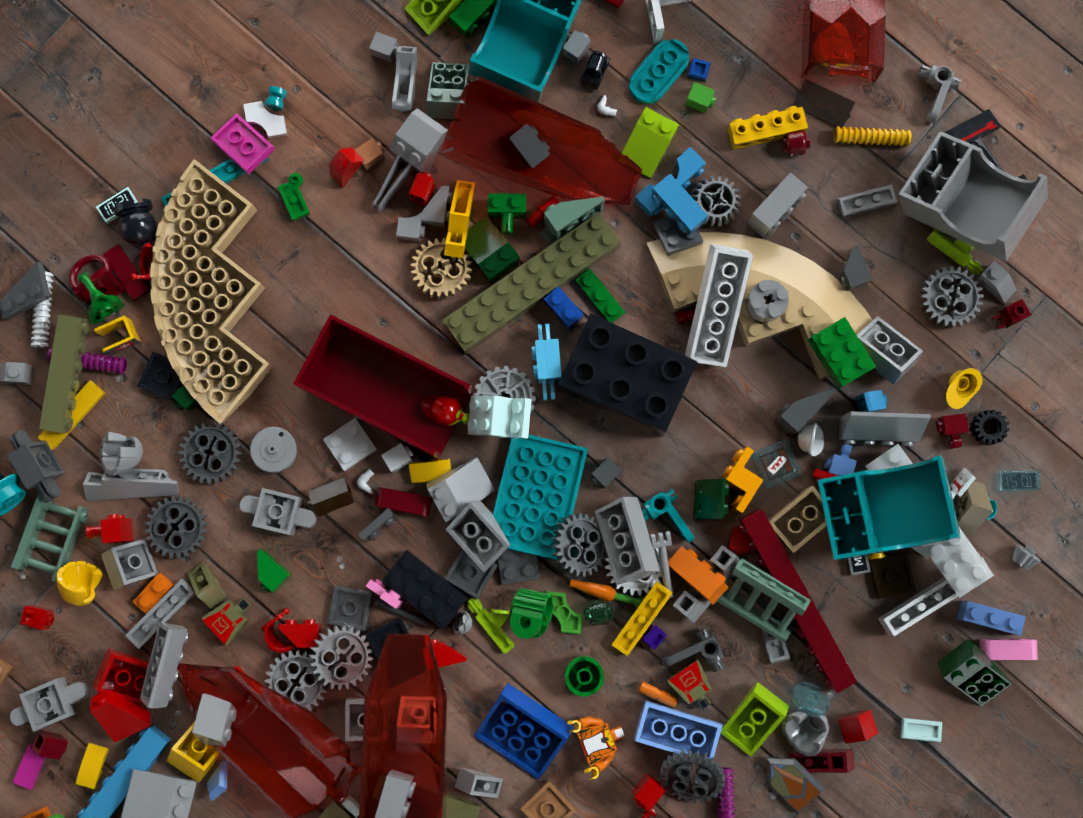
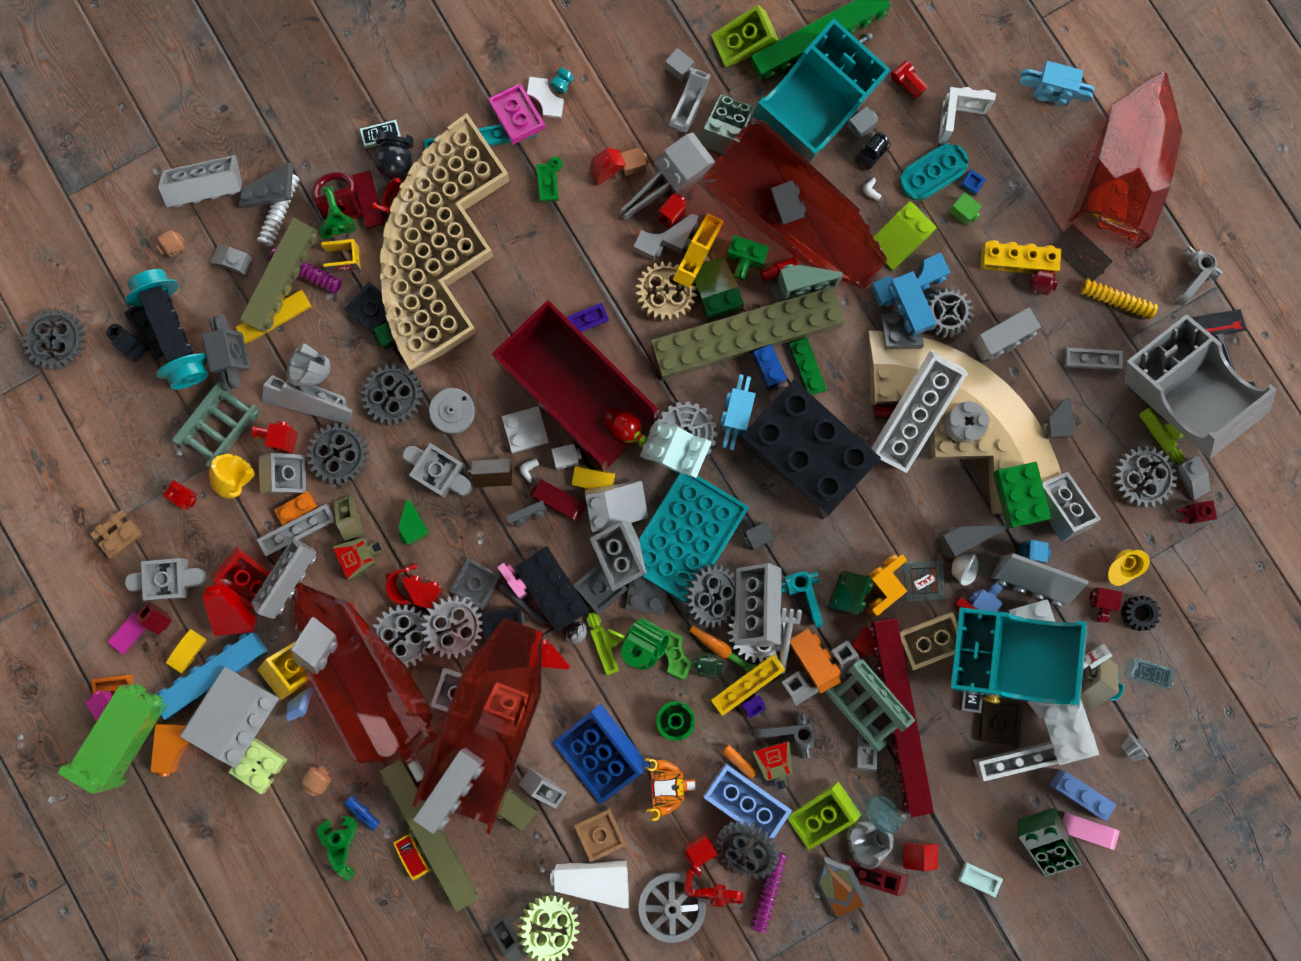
camera: 15 degrees right, 0 degrees up
(376, 318) = (589, 318): none -> dark purple plate

